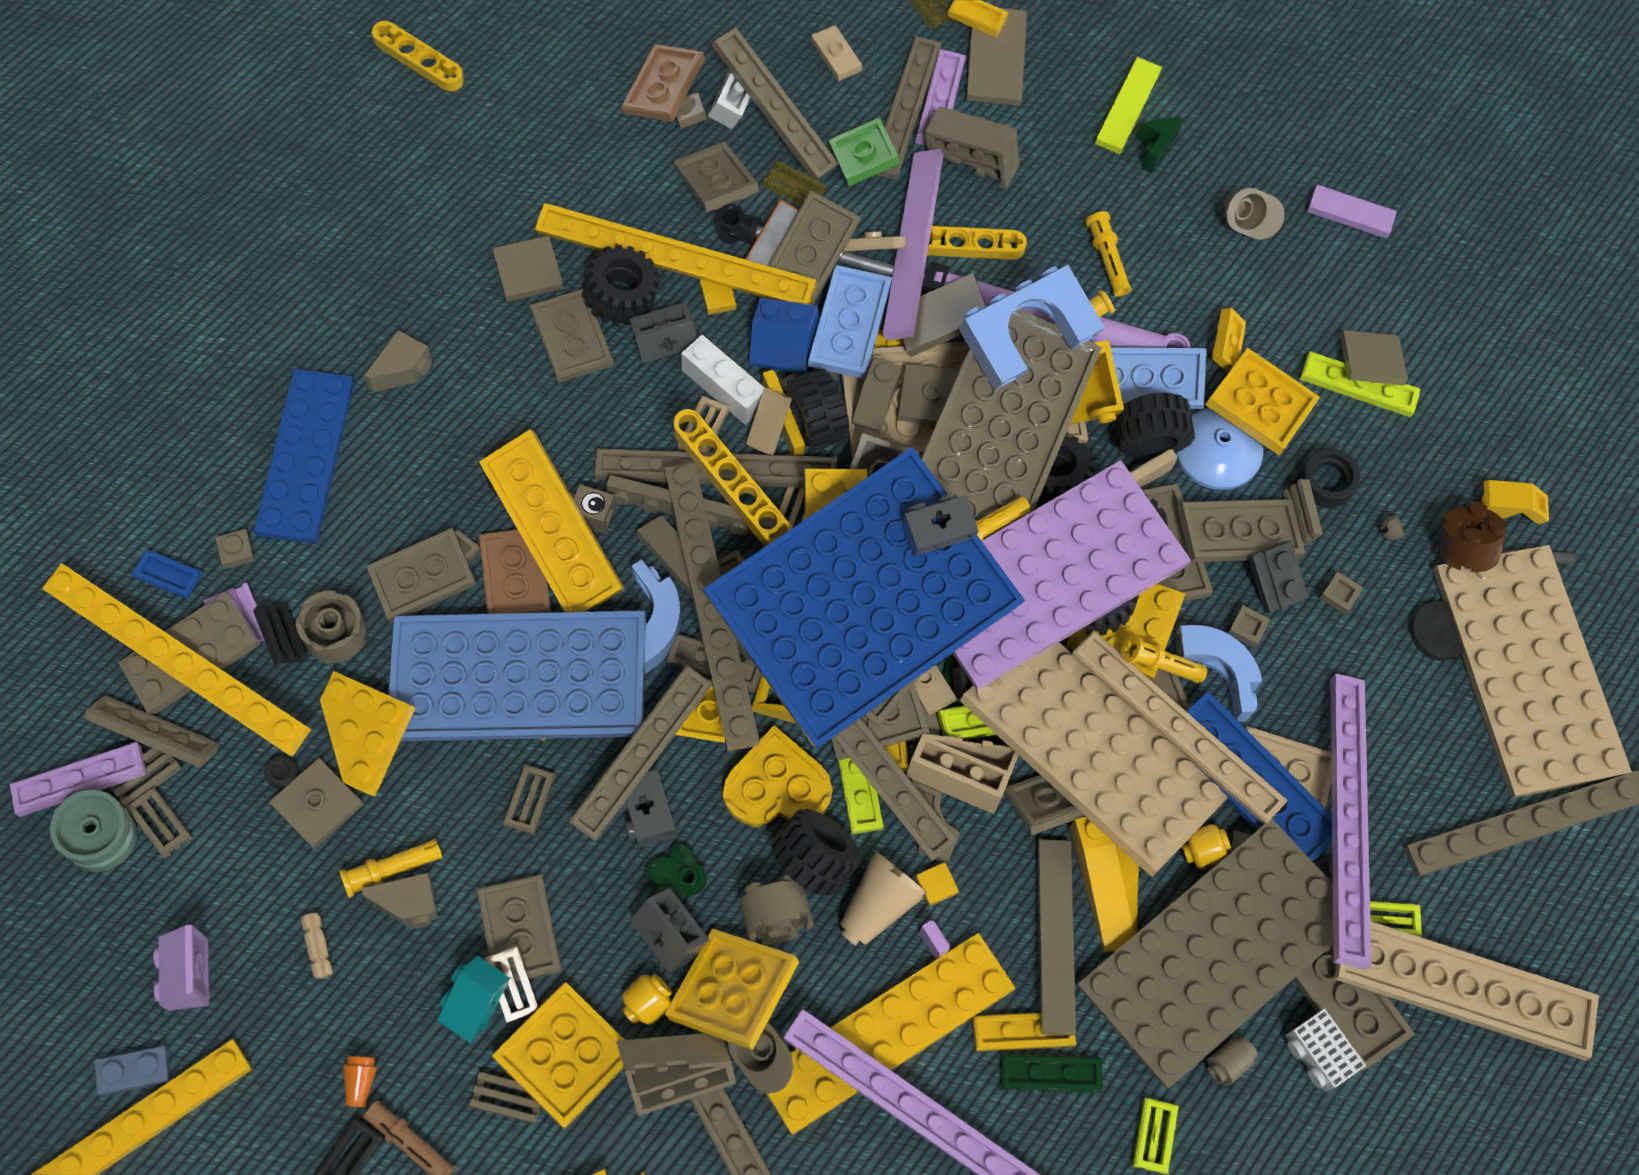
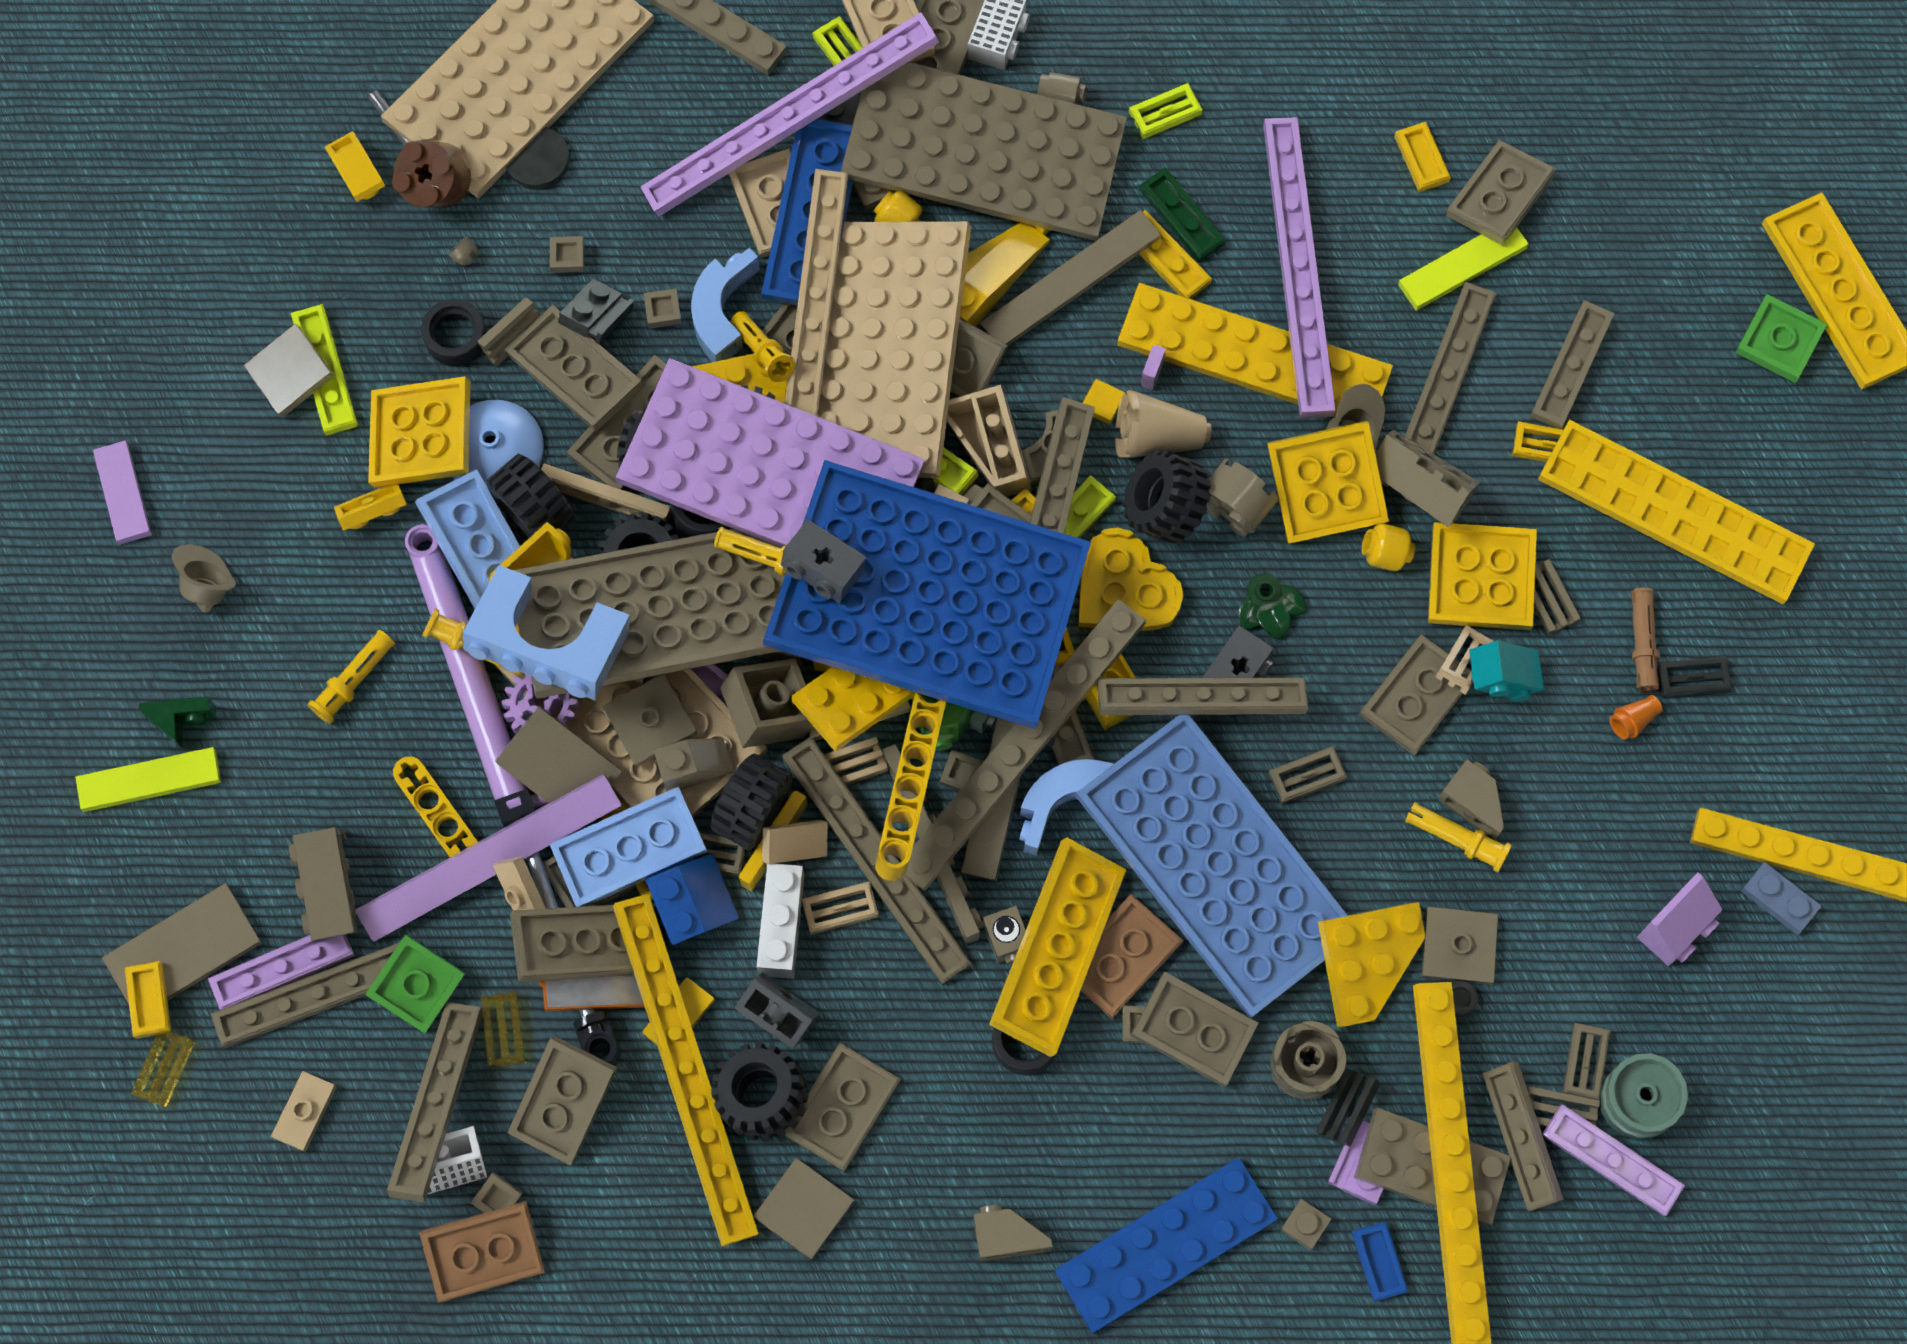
camera: 120 degrees left, 5 degrees up
(316, 945) = (1568, 841): tan axle -> none
(669, 930) = (1322, 568): dark grey brick -> none

